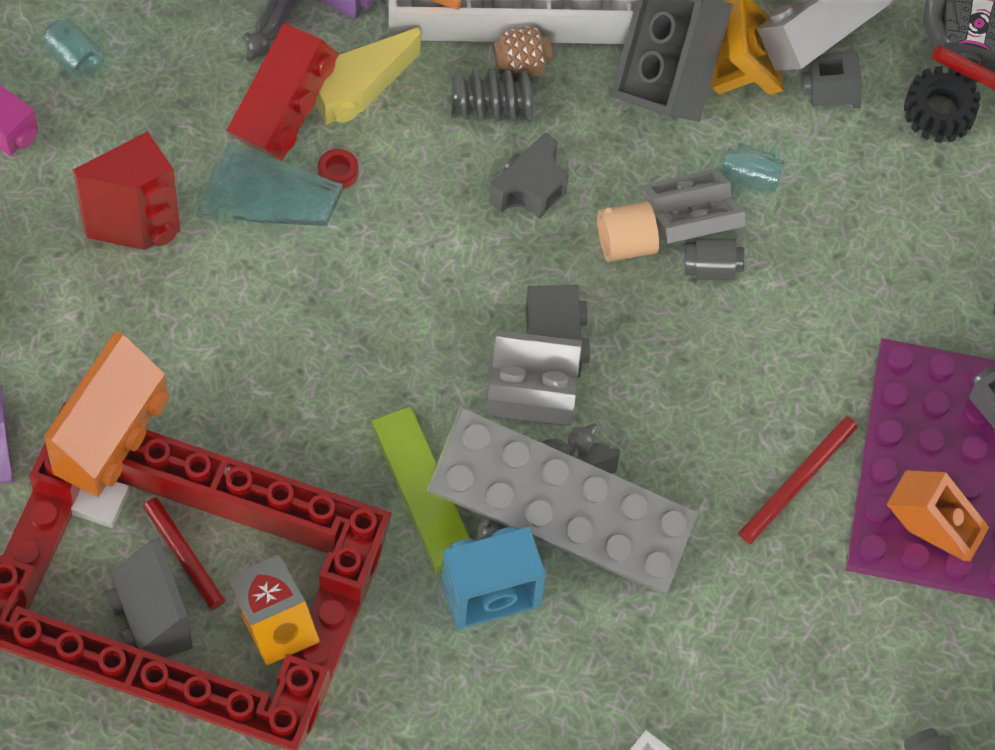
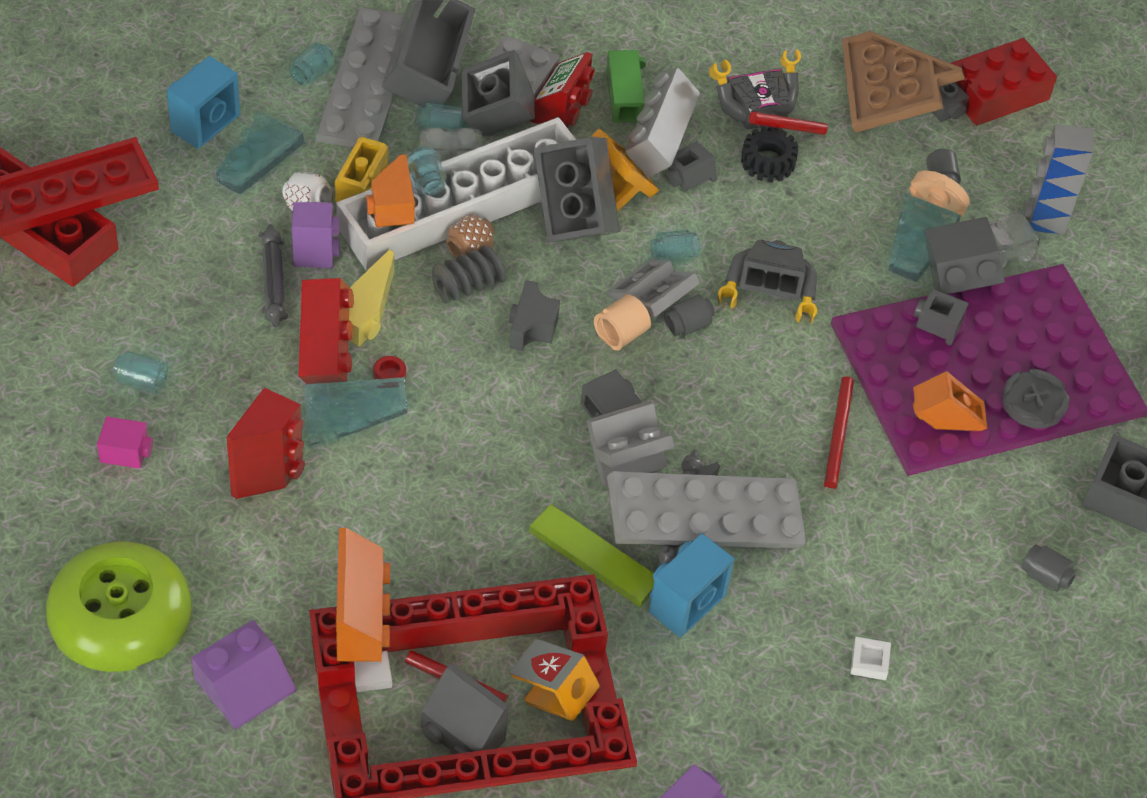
camera: 30 degrees left, 10 degrees down
(844, 251) = (775, 271): none -> dark grey torso

